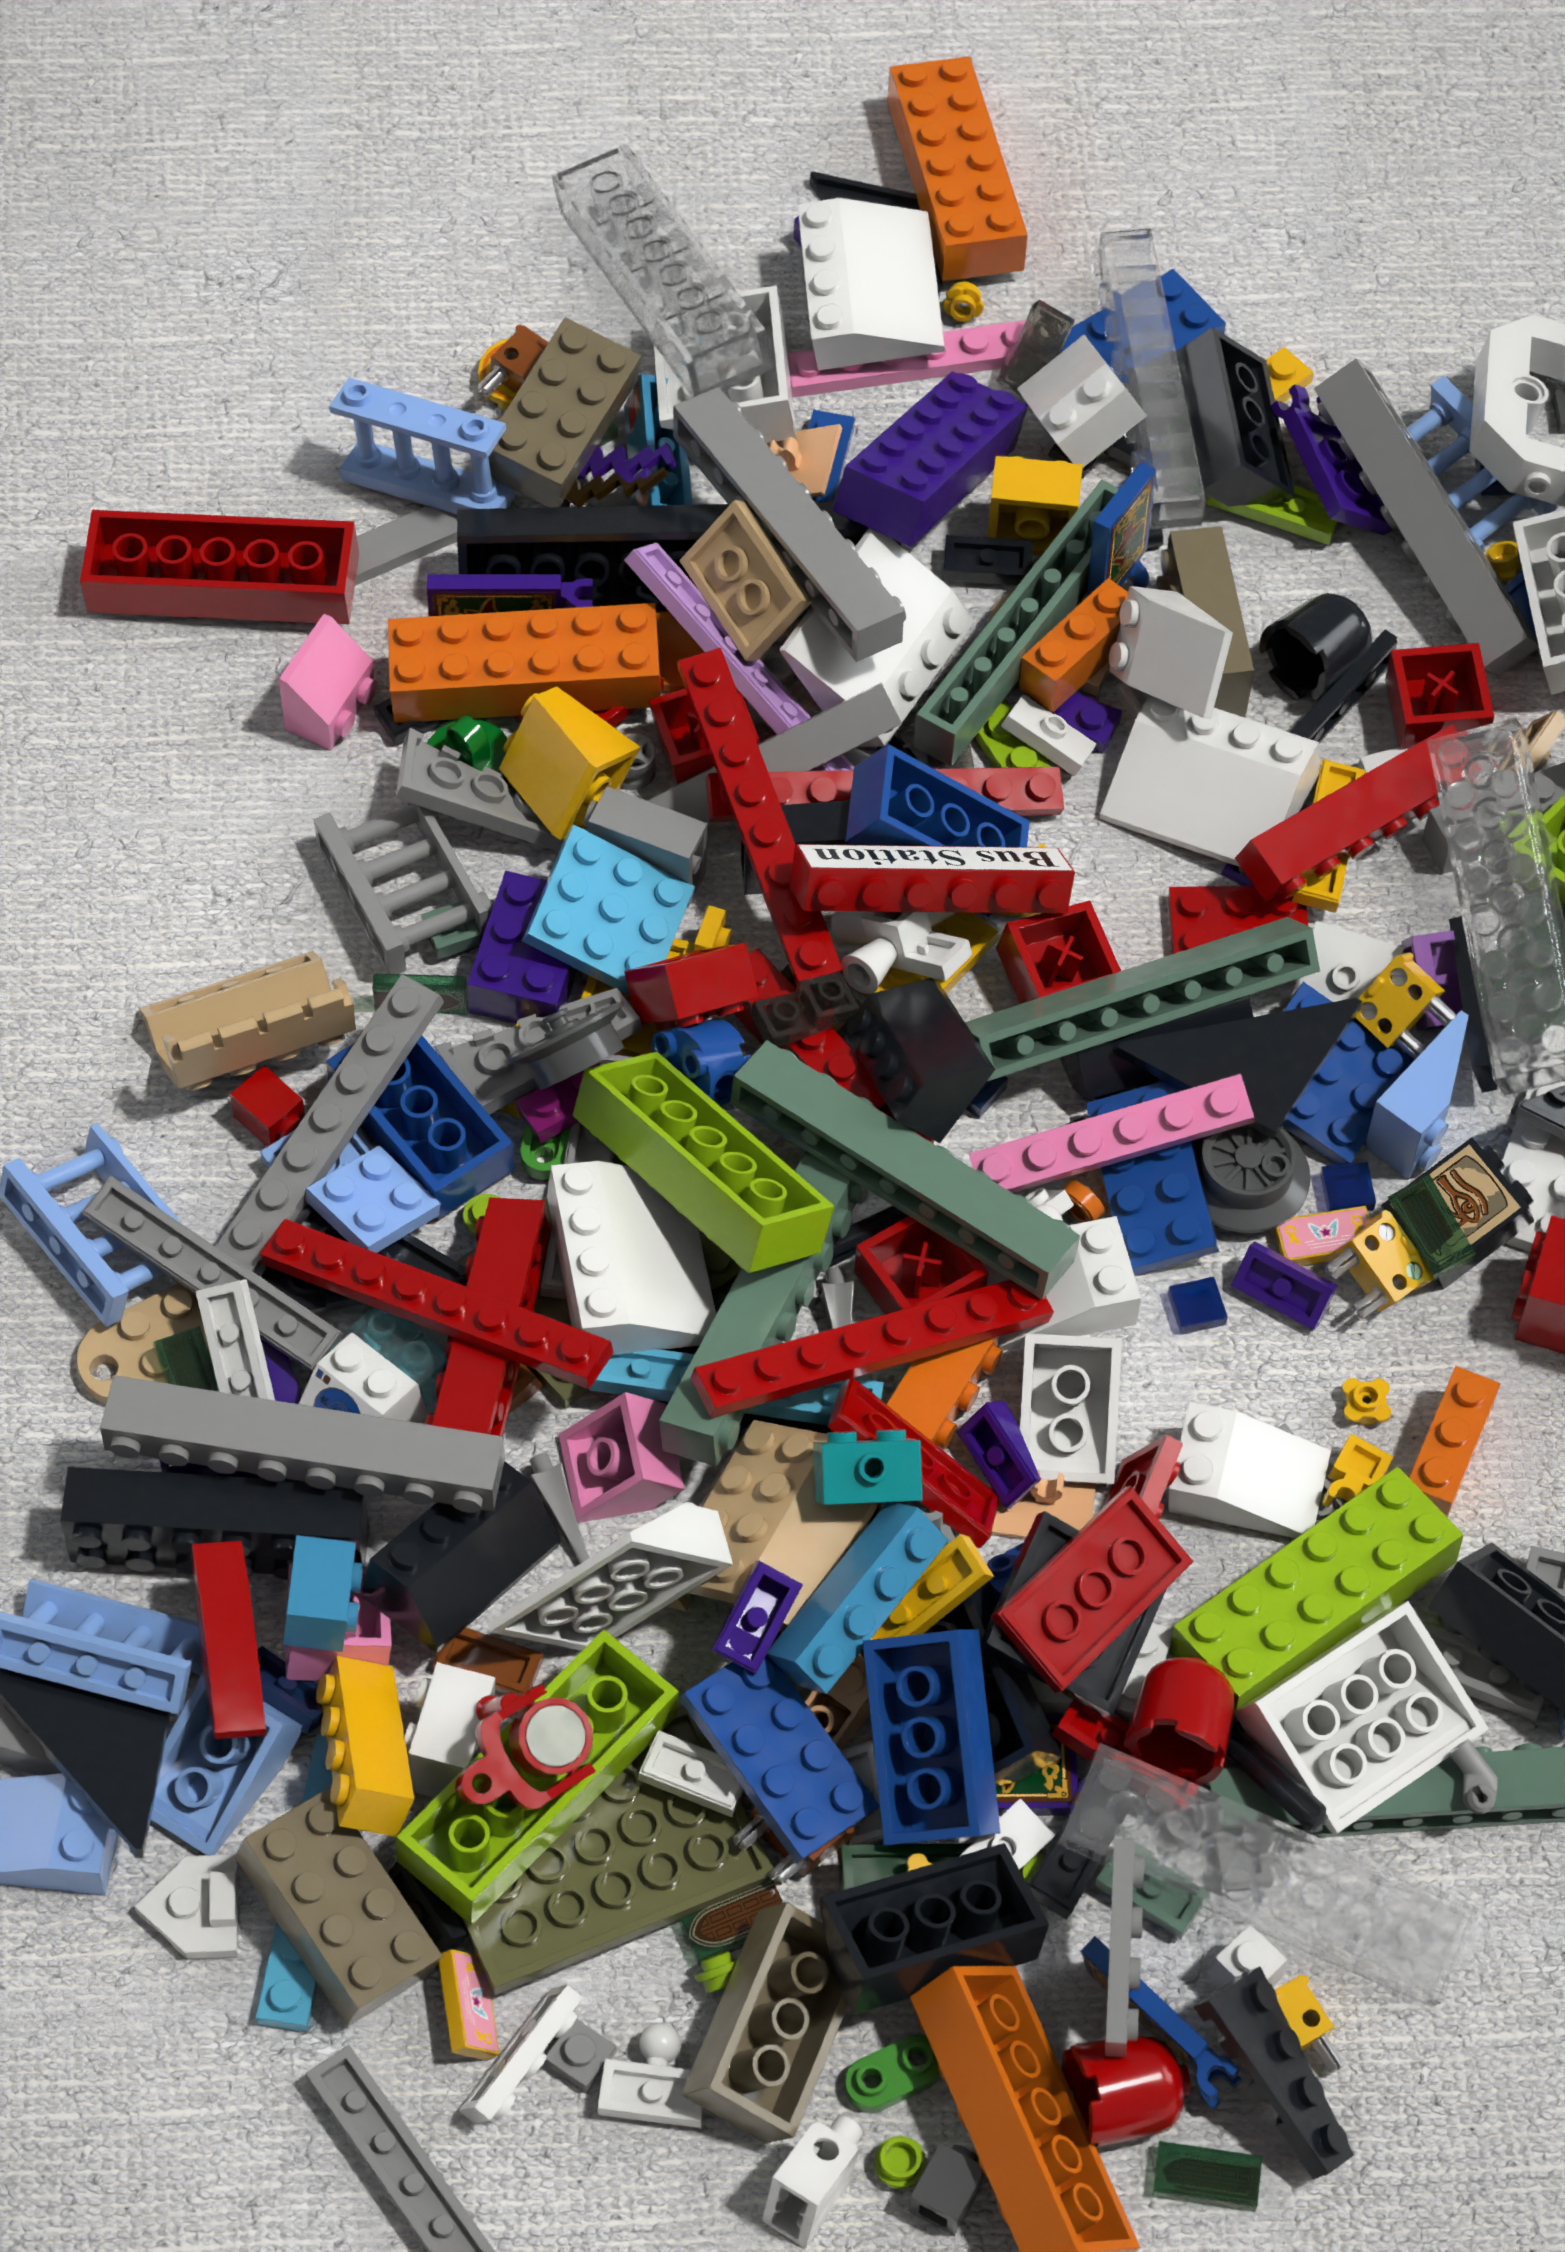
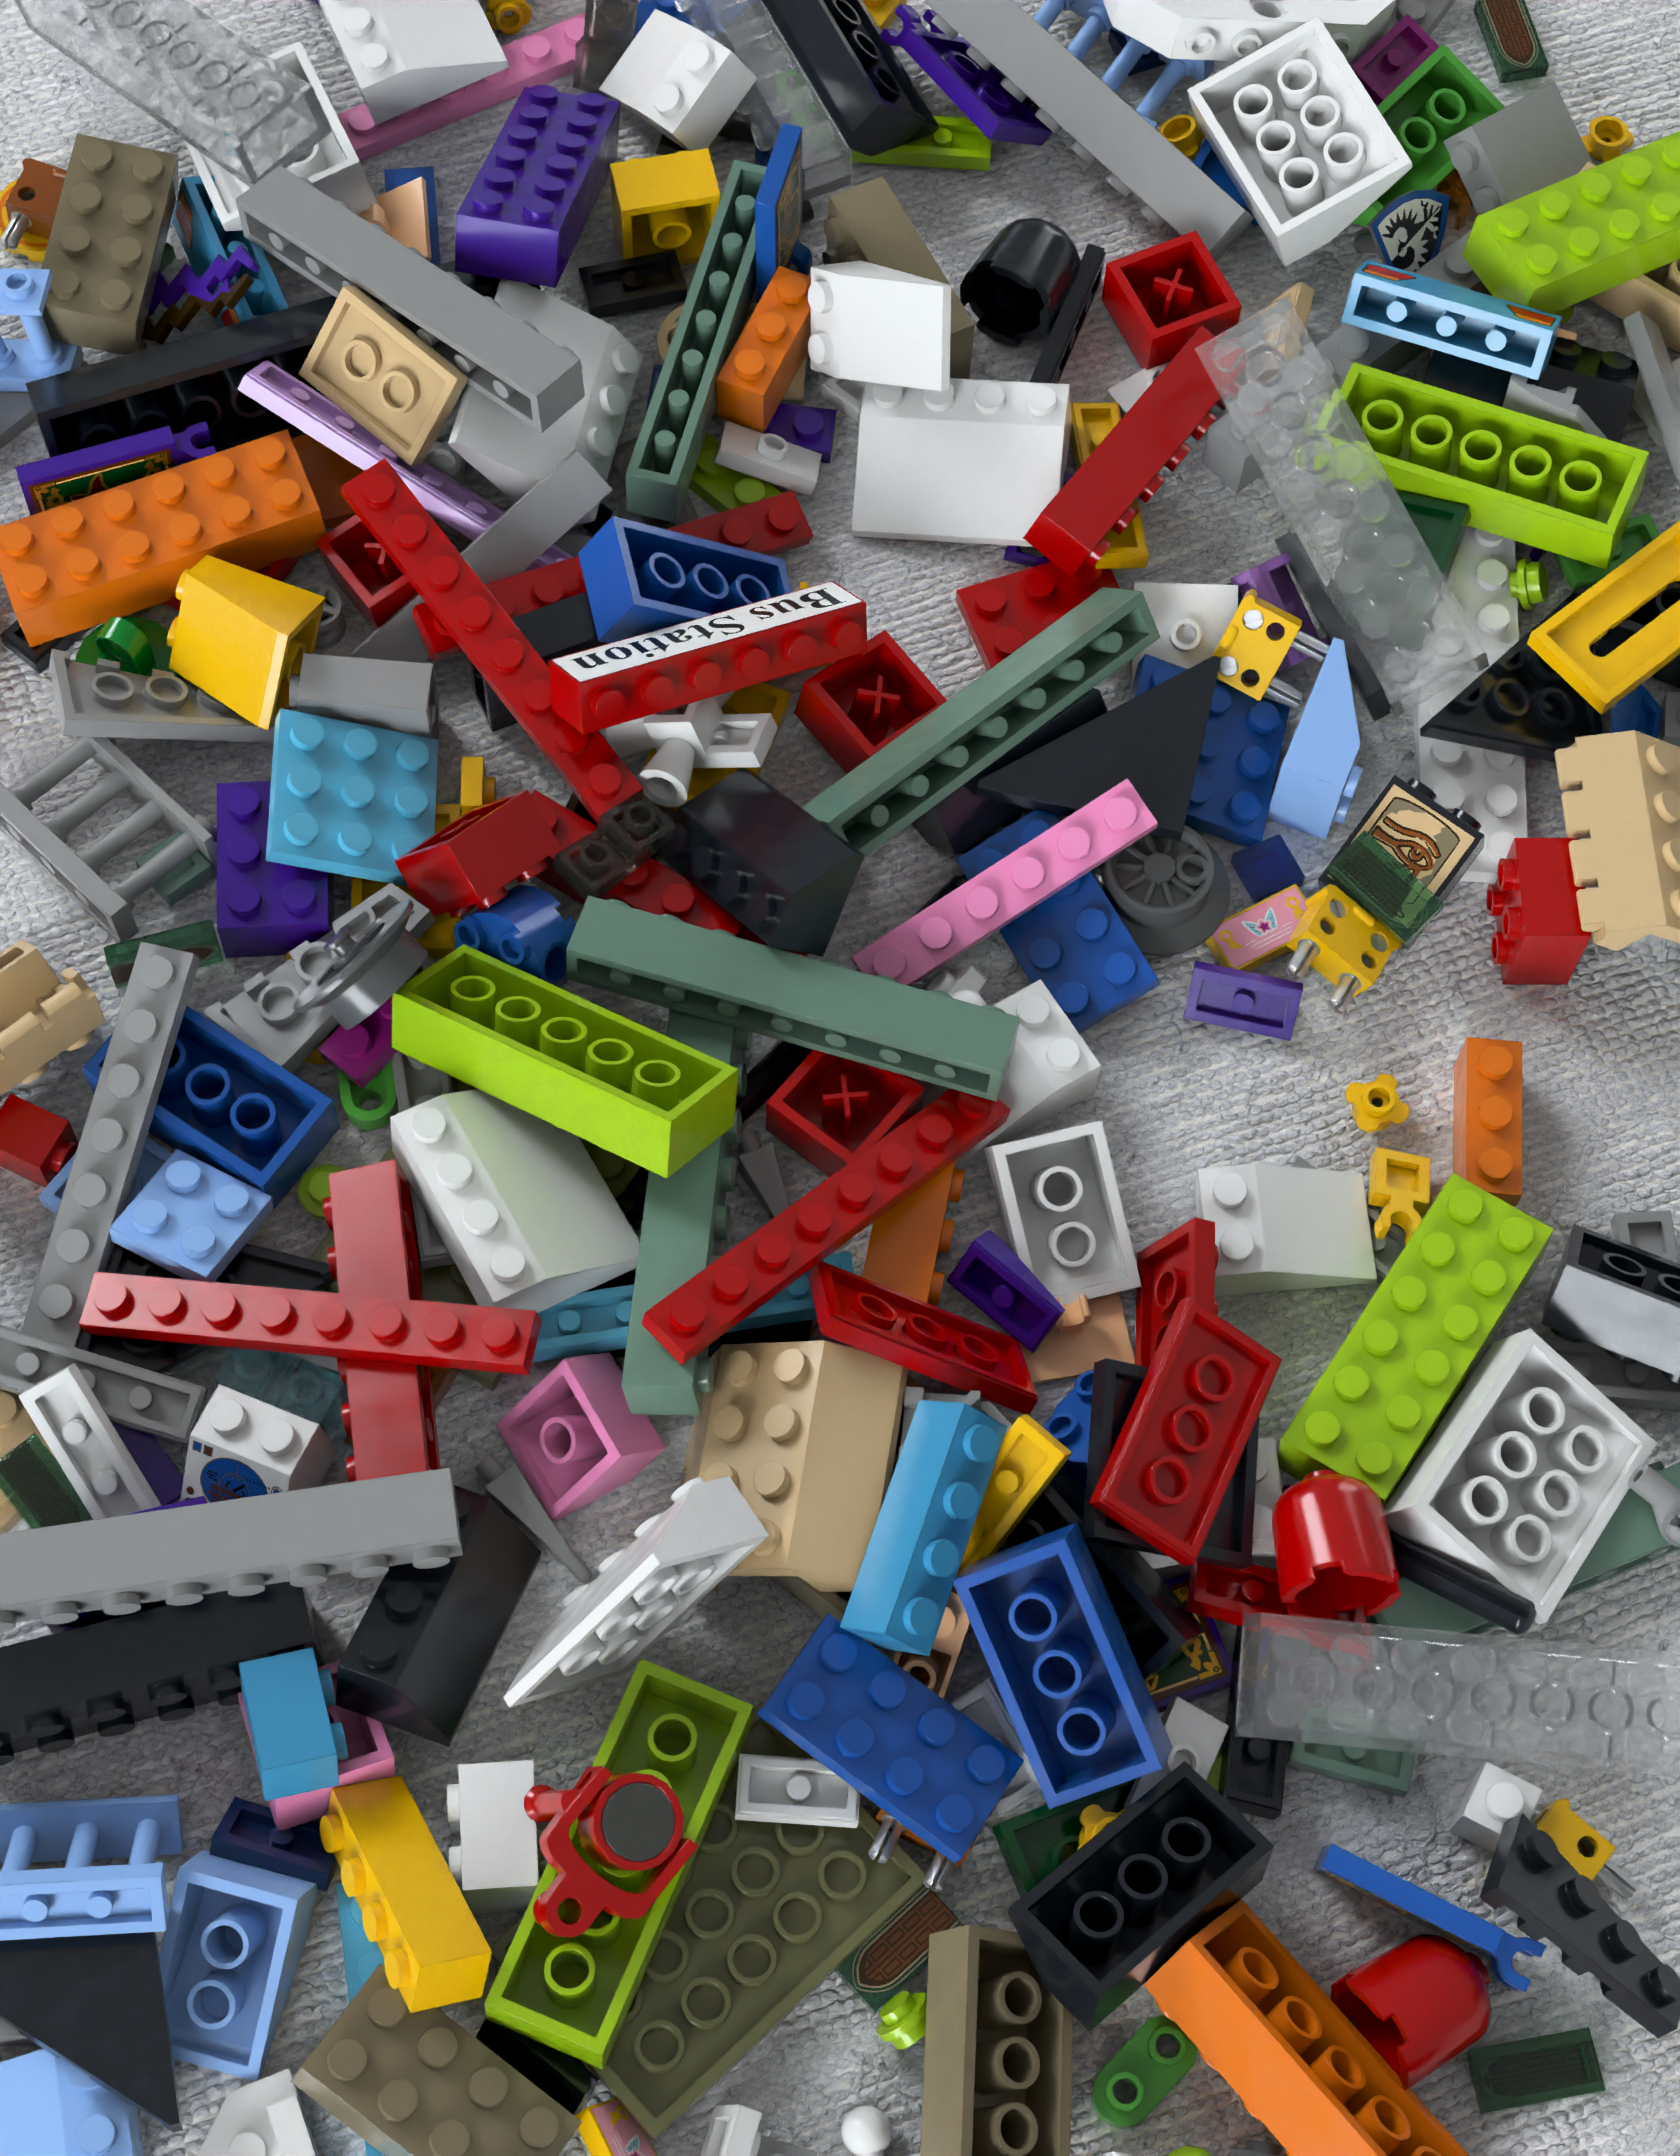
camera: 20 degrees left, 5 degrees up
(228, 1640) = (198, 1819): red slope -> none
(510, 1664) = (515, 1733): dark orange tile -> none
(756, 1616) = (816, 1588): dark purple slope -> none
(867, 1469) = (886, 1371): teal brick -> none
(1086, 1204) = (998, 973): orange tile -> none
(1123, 1969) = (1384, 1880): light grey plate -> none
(1197, 1305) = (1154, 1051): clear blue tile -> none

